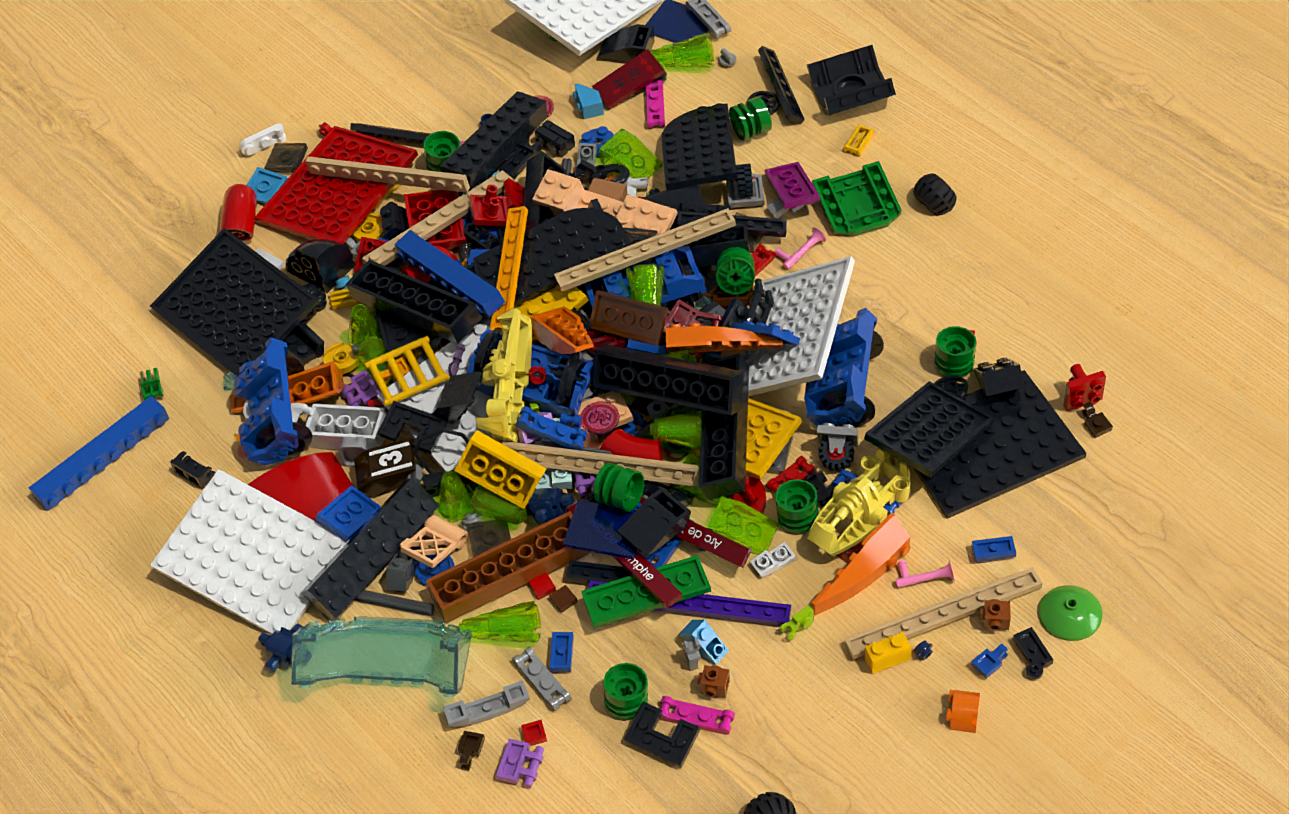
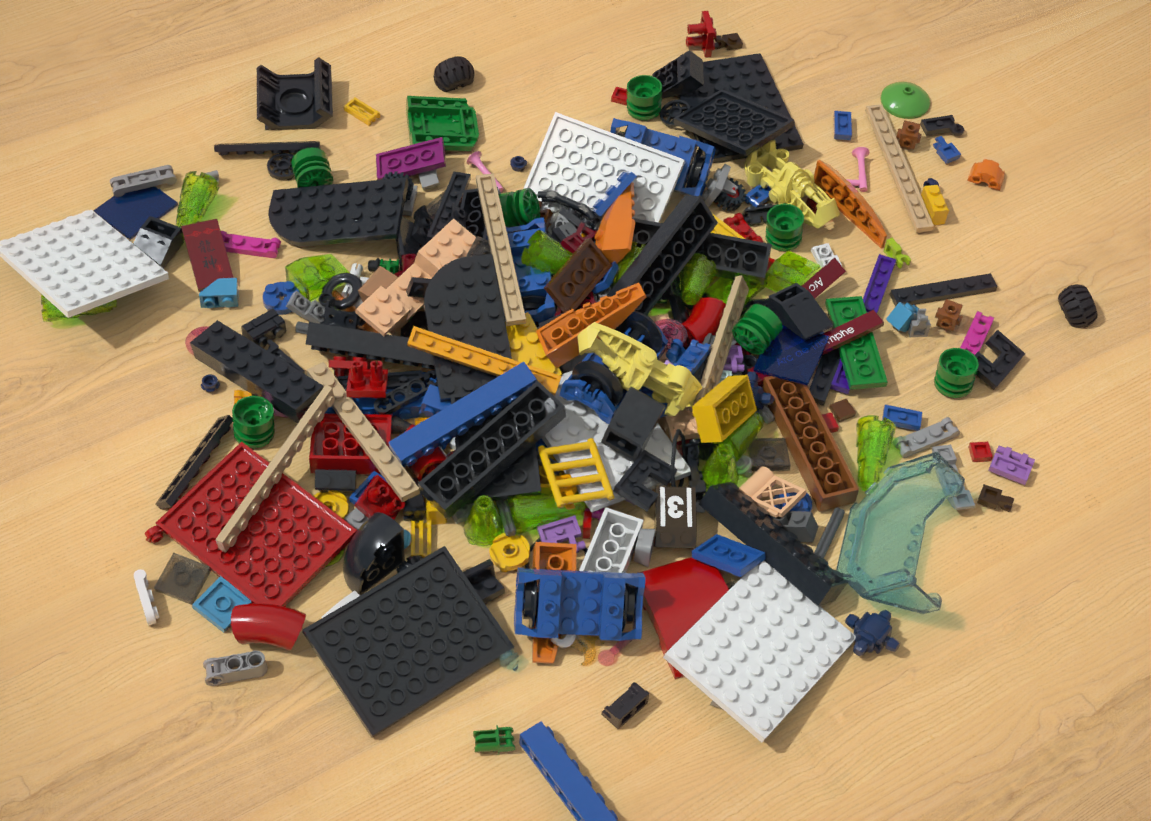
camera: 90 degrees left, 0 degrees up
(205, 210) = (223, 667): none -> light grey piece
(457, 359) = (572, 427): clear purple piece -> none
(762, 680) = (944, 290): none -> black plate

